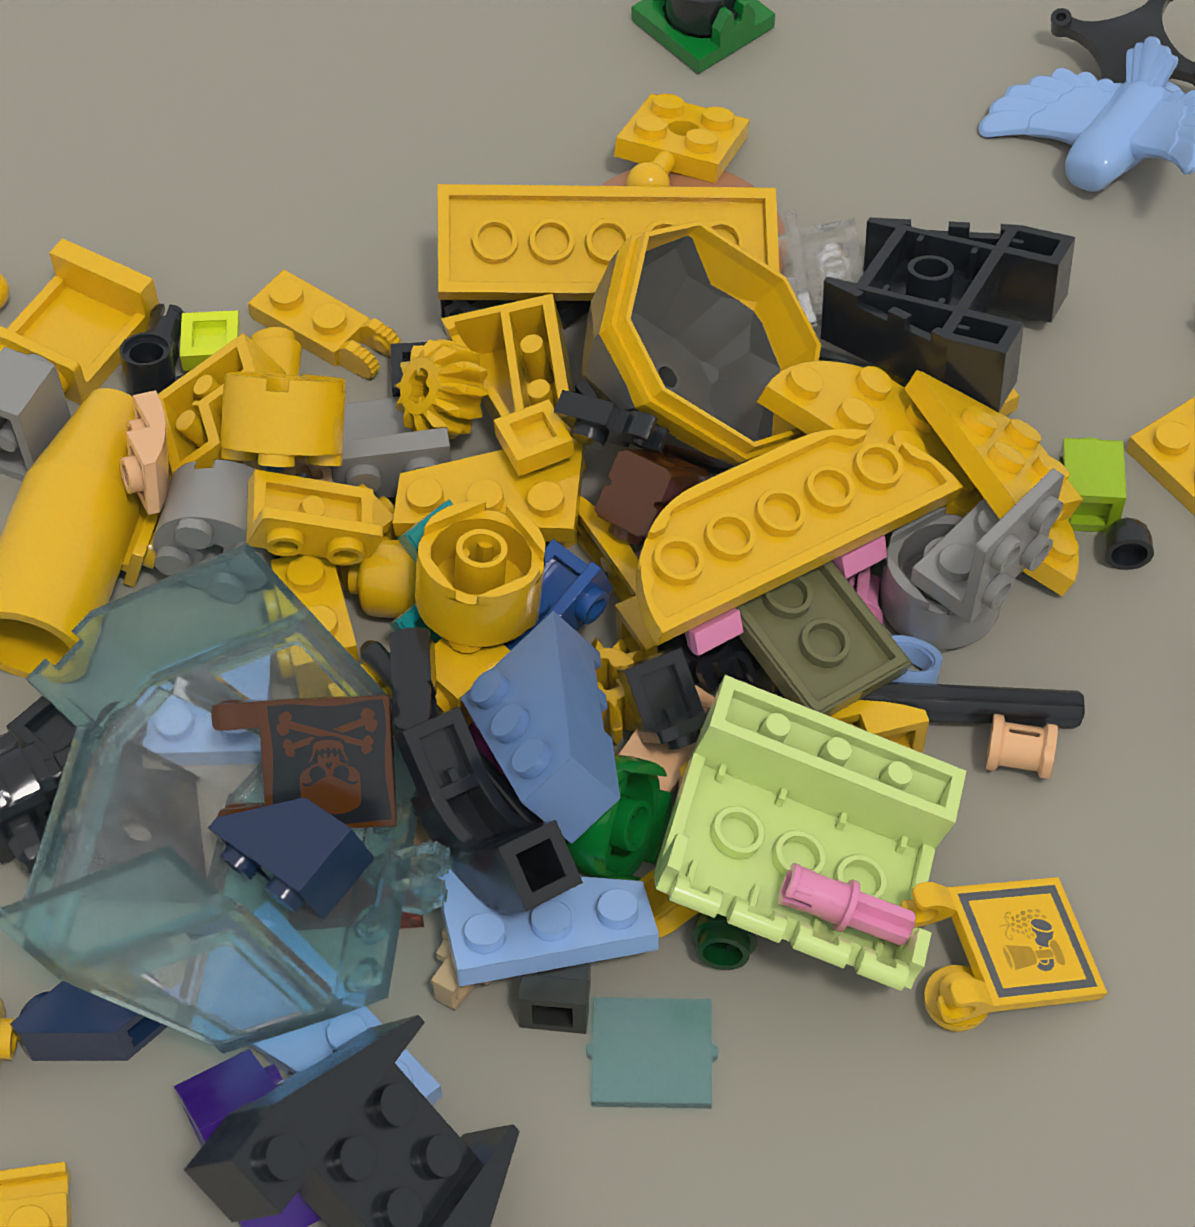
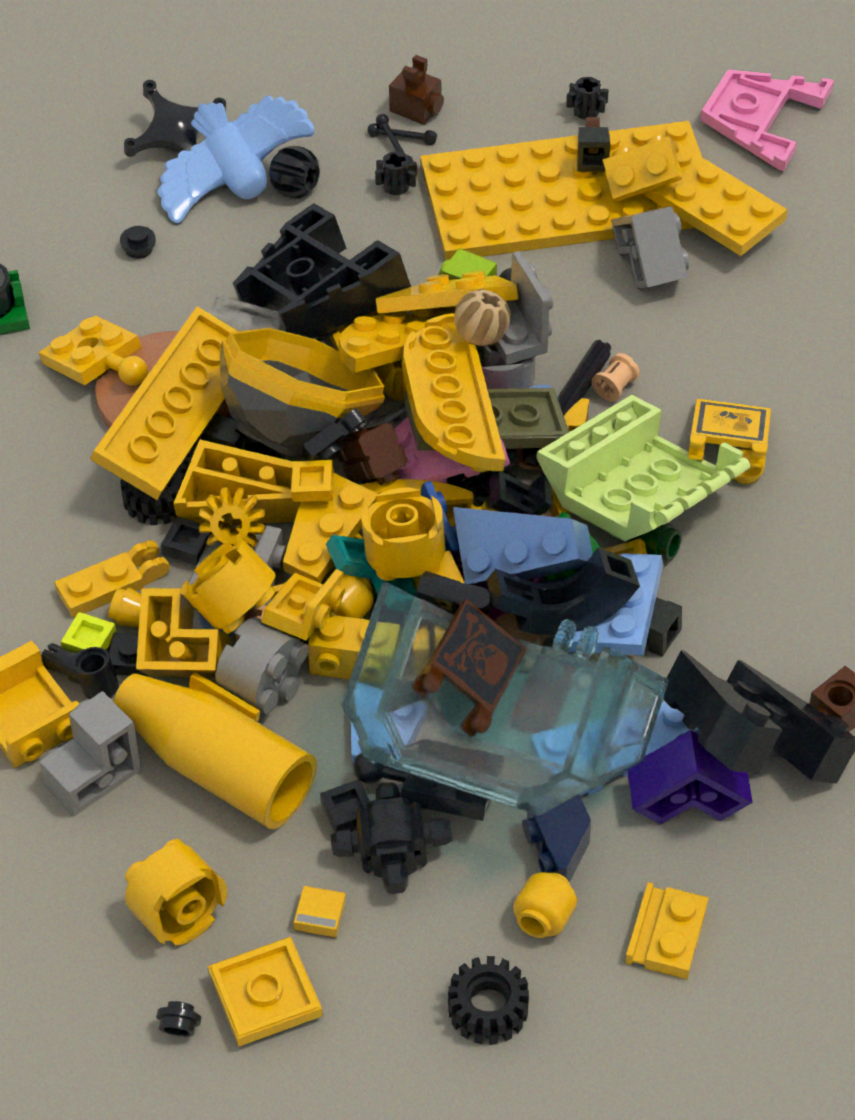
camera: 65 degrees left, 5 degrees down
(147, 461) = (201, 664): light nougat slope -> none
(297, 849) = (526, 692): dark blue slope -> none
(652, 1053) = (711, 603): clear light blue piece -> none
(845, 905) = (686, 472): bright pink axle -> none
(912, 107) = (138, 241): none -> black plate
(934, 497) = (482, 317): none -> tan piece
(1148, 204) = (294, 171): none -> black piece

